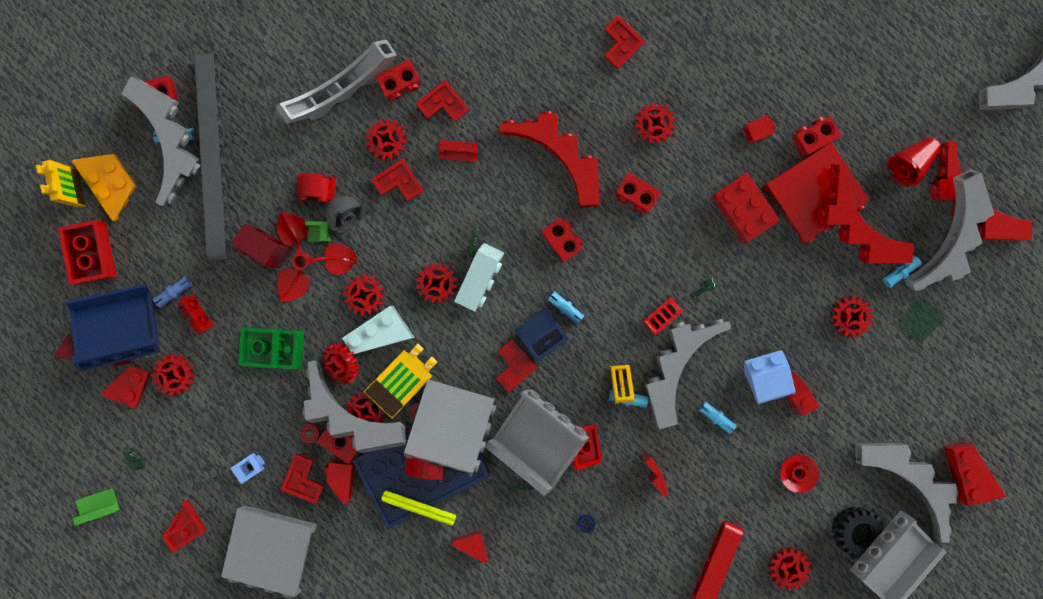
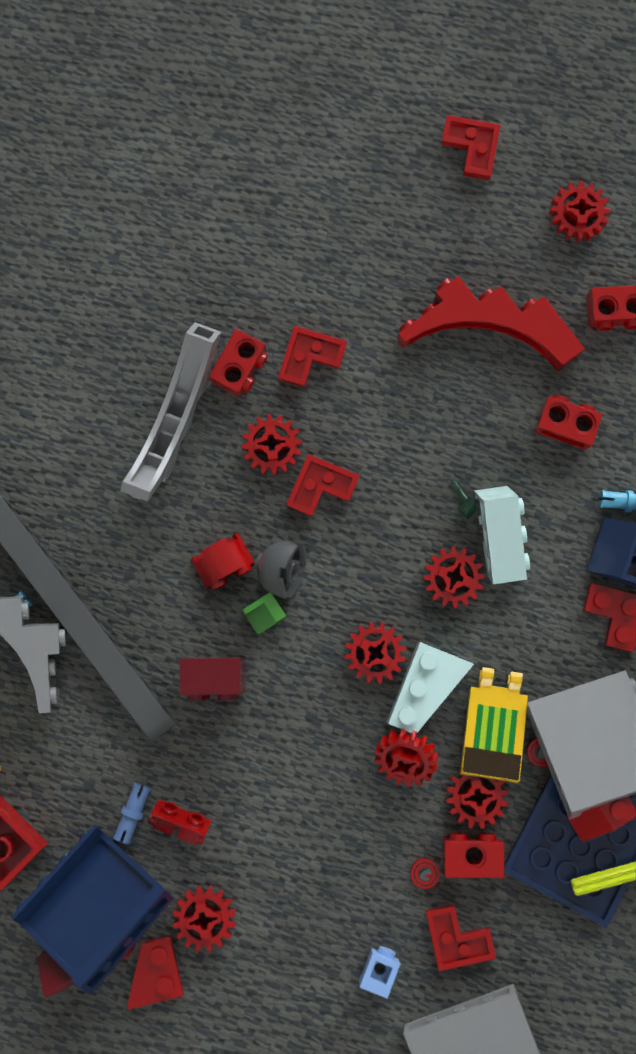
camera: 40 degrees left, 5 degrees down
(271, 348) = (304, 799): green slope -> none
(293, 284) = (274, 699): red plant -> none
(324, 407) = (509, 821): light grey arch -> none
(340, 479) = (504, 903): red slope -> none
(458, 151) = (367, 400): red hinge -> none

